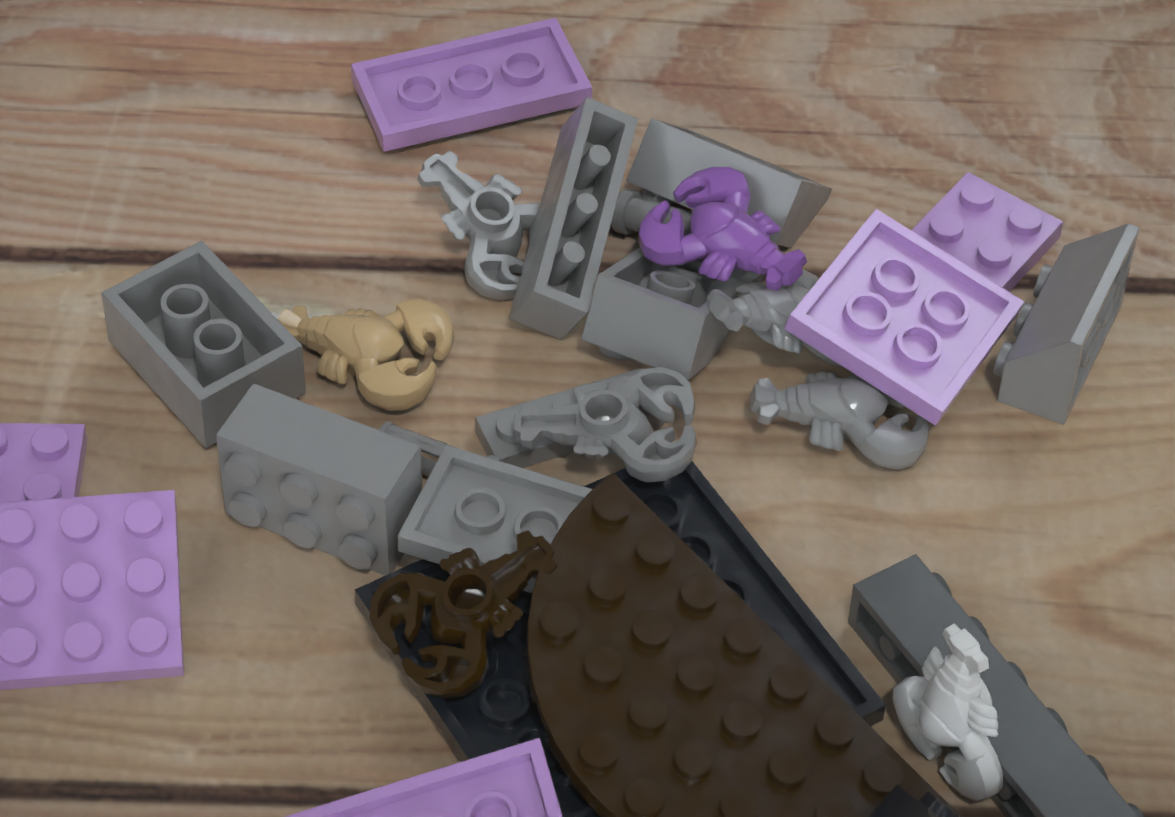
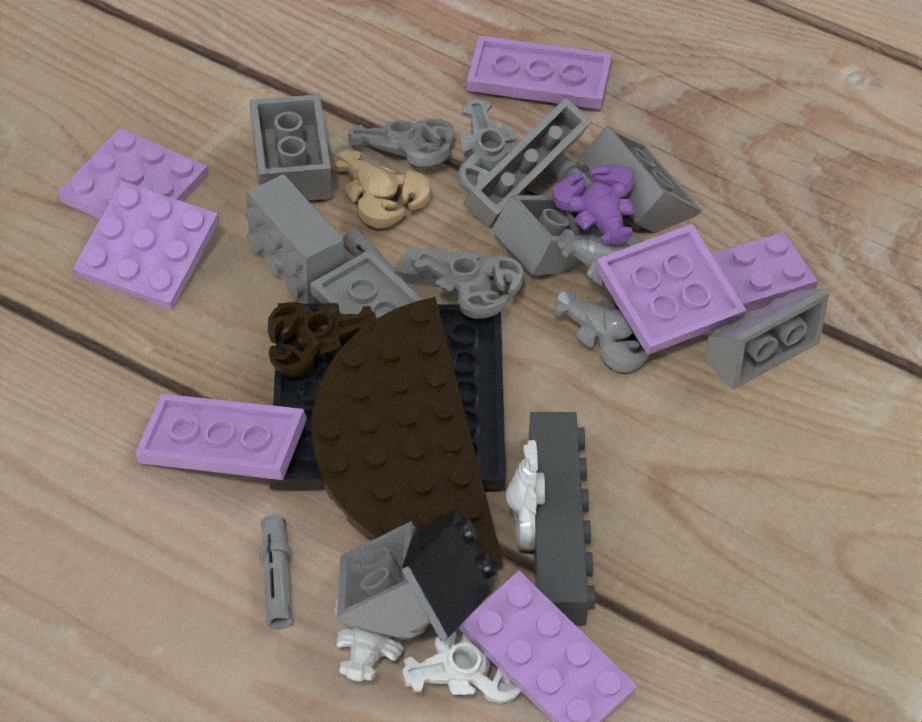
camera: 30 degrees right, 0 degrees up
(362, 257) = (409, 139): none -> light grey animal

